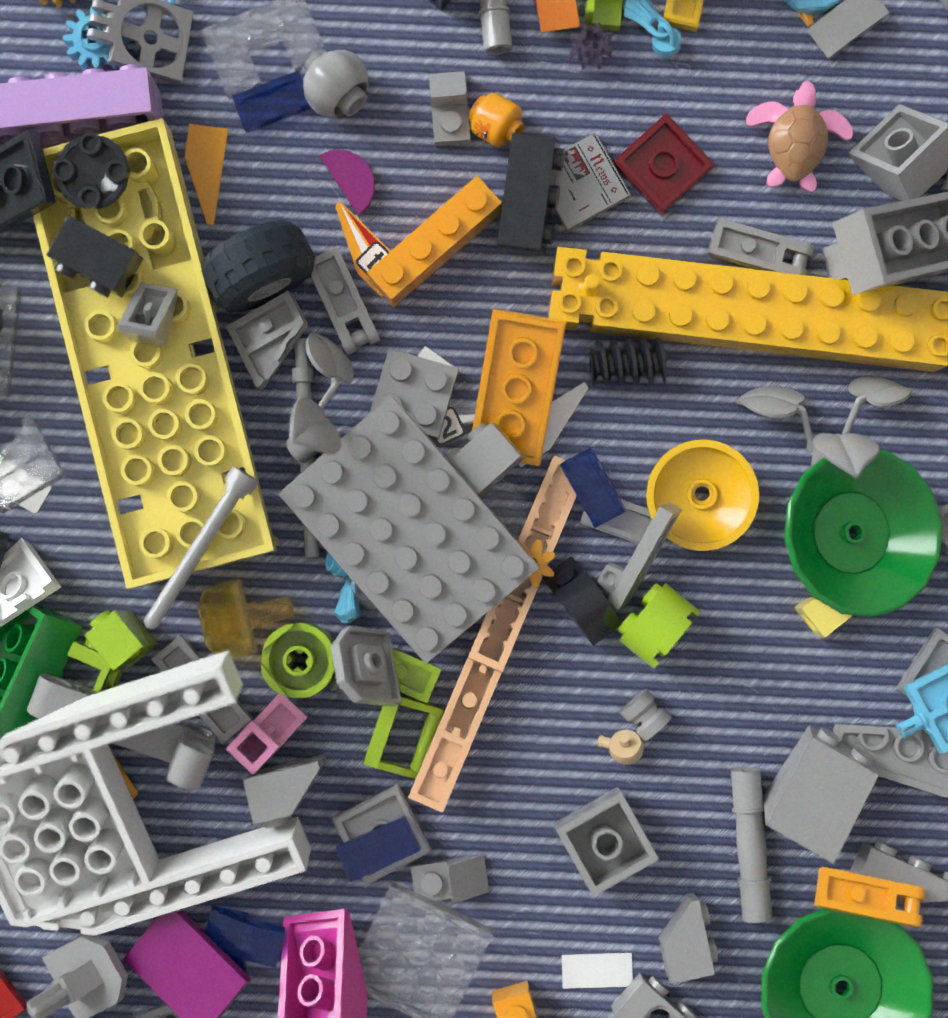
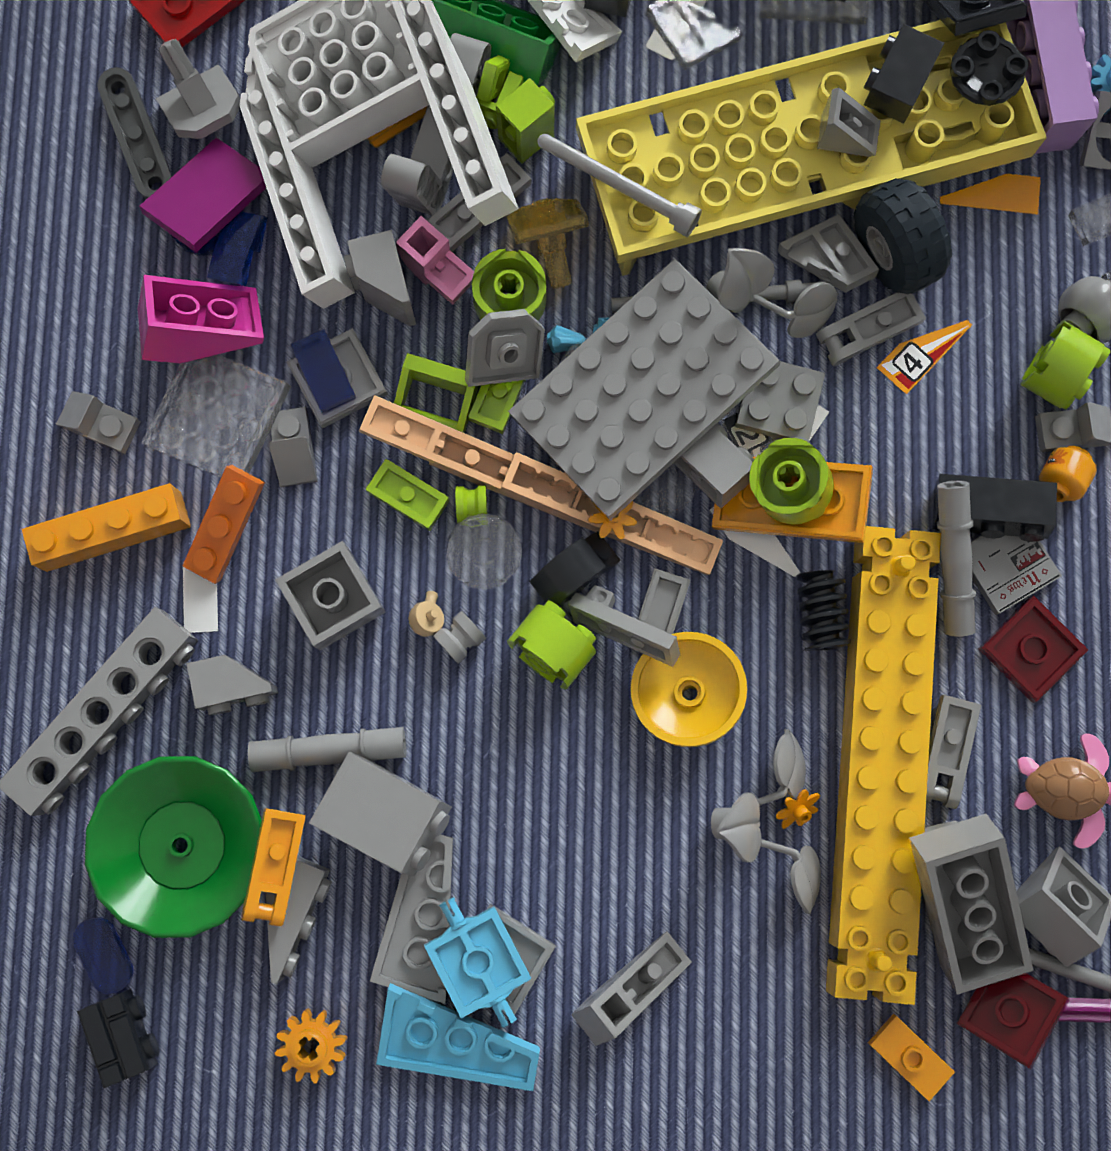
camera: 85 degrees right, 5 degrees down
(74, 672) = (493, 78): none -> lime tile
(271, 102) = (1067, 251): clear blue tile -> none
(352, 178) = (997, 334): magenta tile -> none
(392, 116) = (1063, 366): none -> lime brick
(435, 241) = (936, 413): light orange brick -> none
(490, 400) = (777, 466): none -> lime brick
(502, 764) = (407, 494): none -> lime plate
(514, 701) = (470, 502): none -> lime wheel
(531, 948) = (223, 524): none -> orange plate
(562, 690) = (483, 551): none -> clear tile
(582, 233) = (956, 558): none -> light grey piece
(593, 487) = (691, 579): clear blue tile -> none
(815, 394) = (799, 809): none -> light orange plant
(820, 617) = (569, 824): light yellow brick -> none
(893, 540) = (663, 895): green dish -> none

